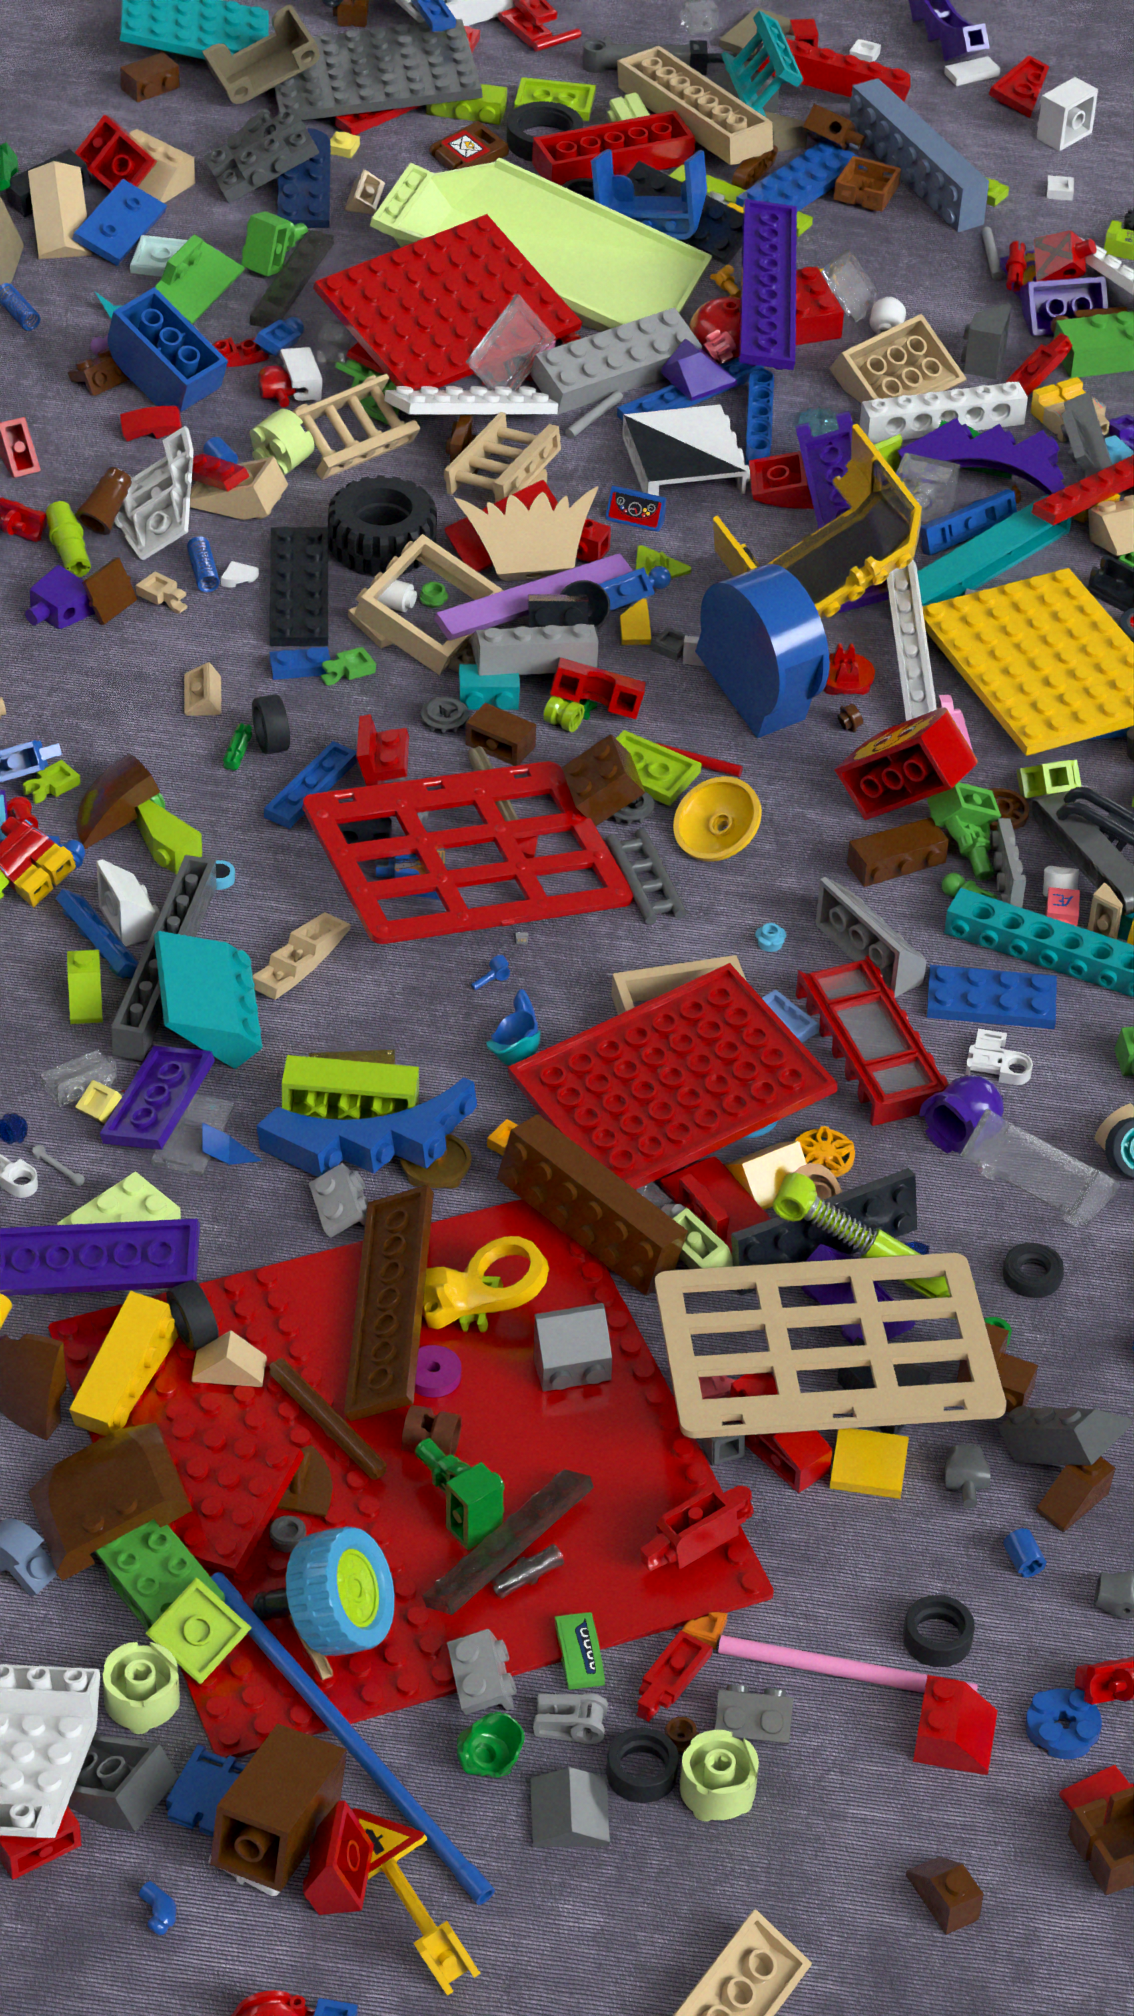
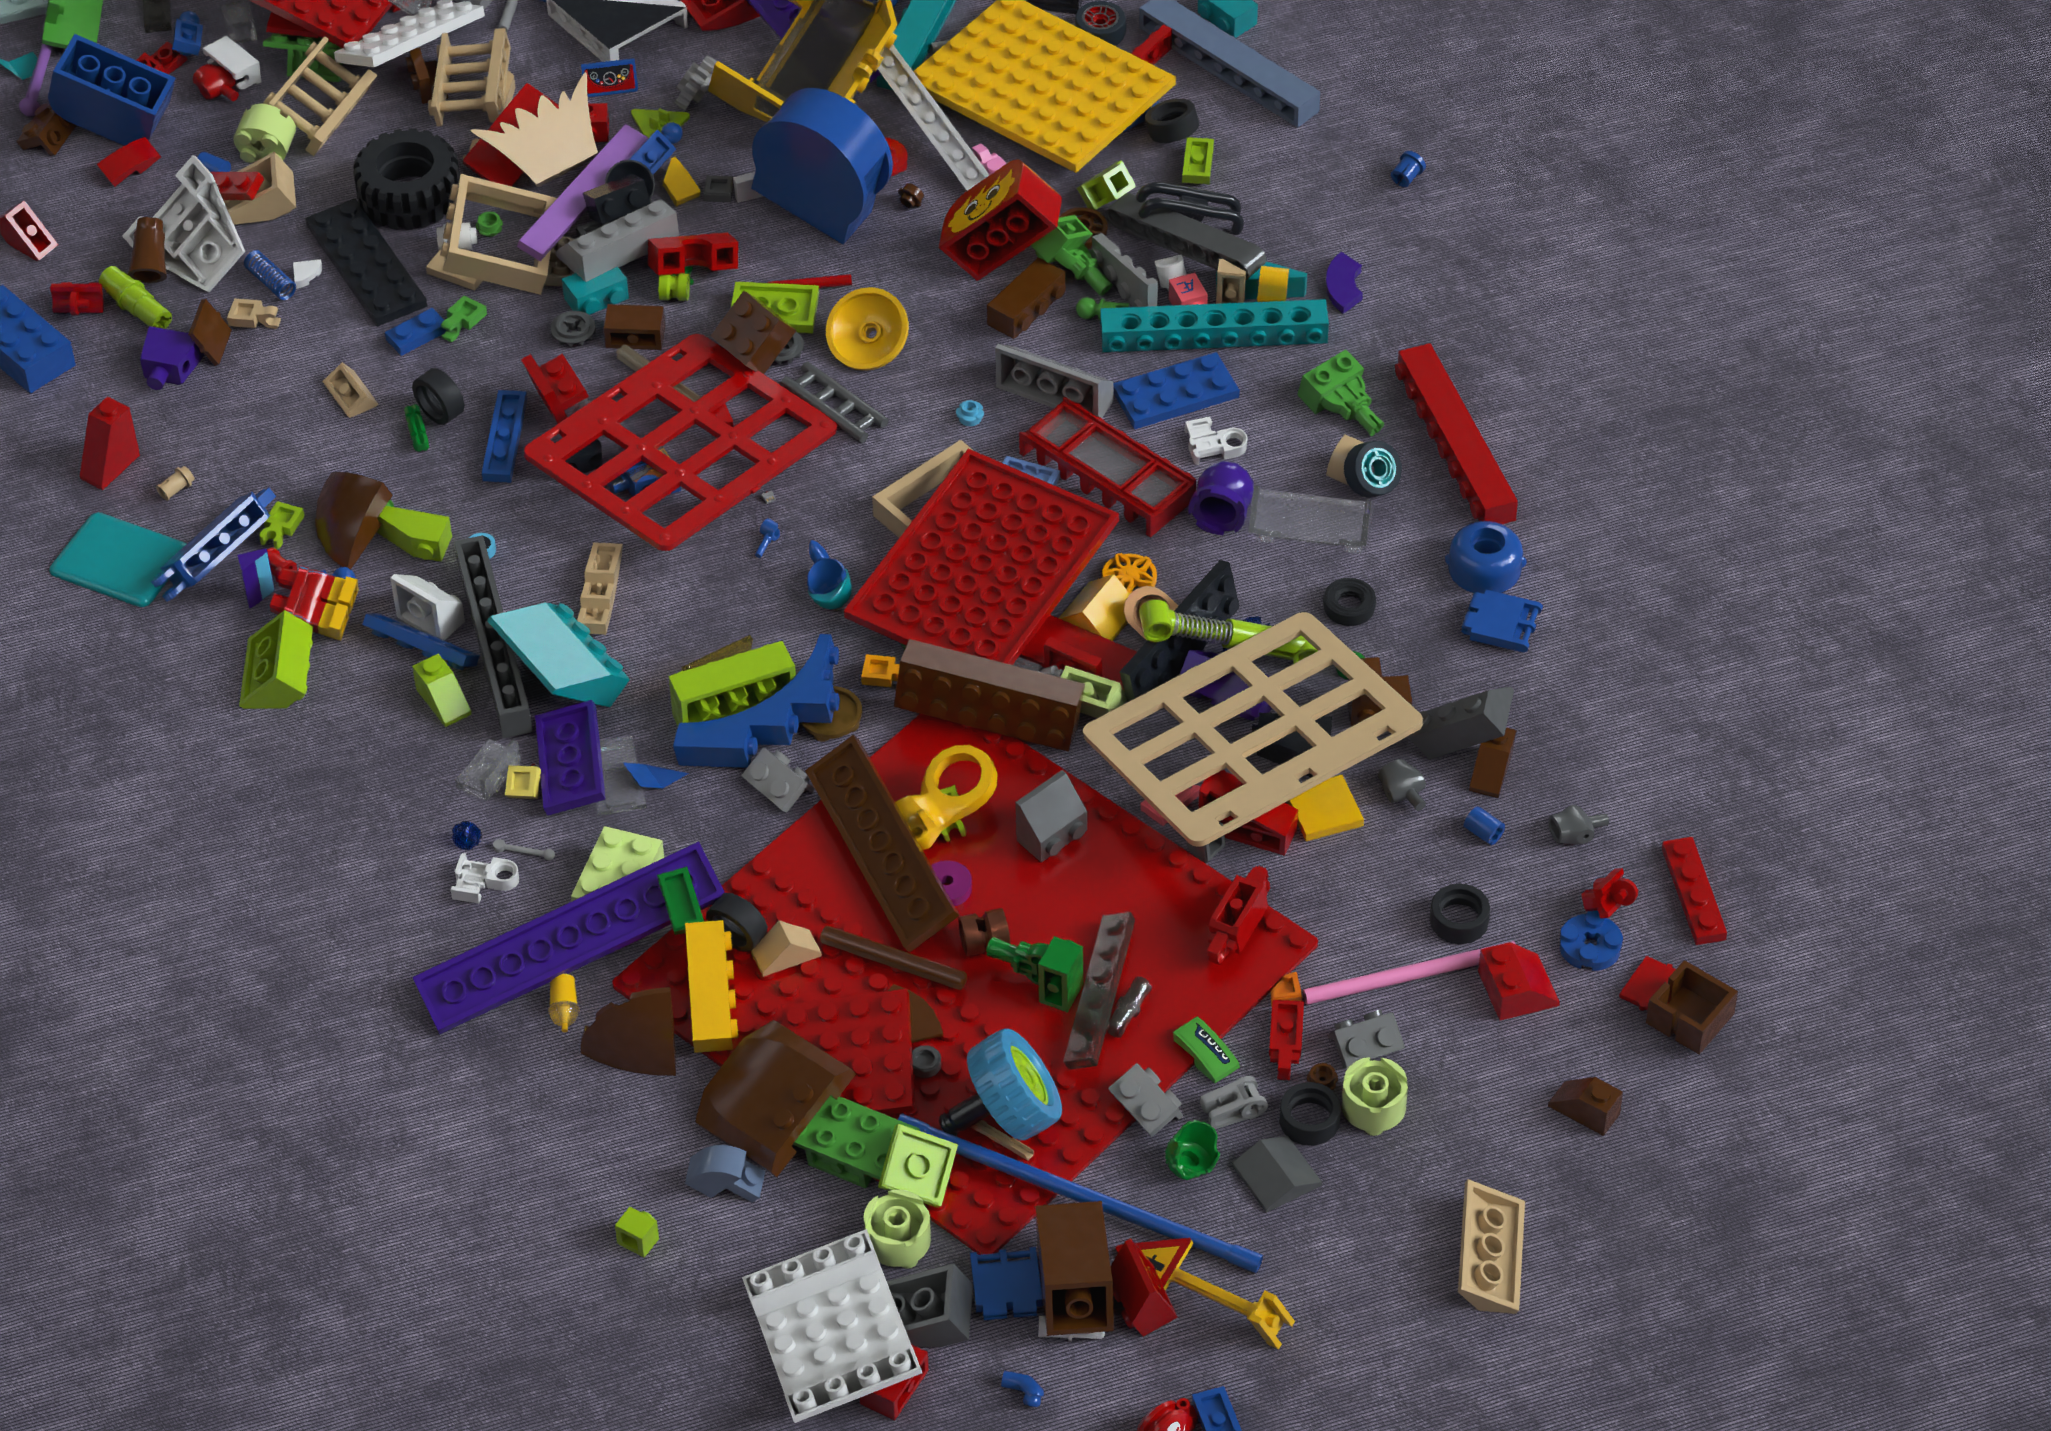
camera: 25 degrees left, 5 degrees up
(146, 1265) = (680, 899): none -> green tile
(701, 540) = (695, 82): none -> light grey gear

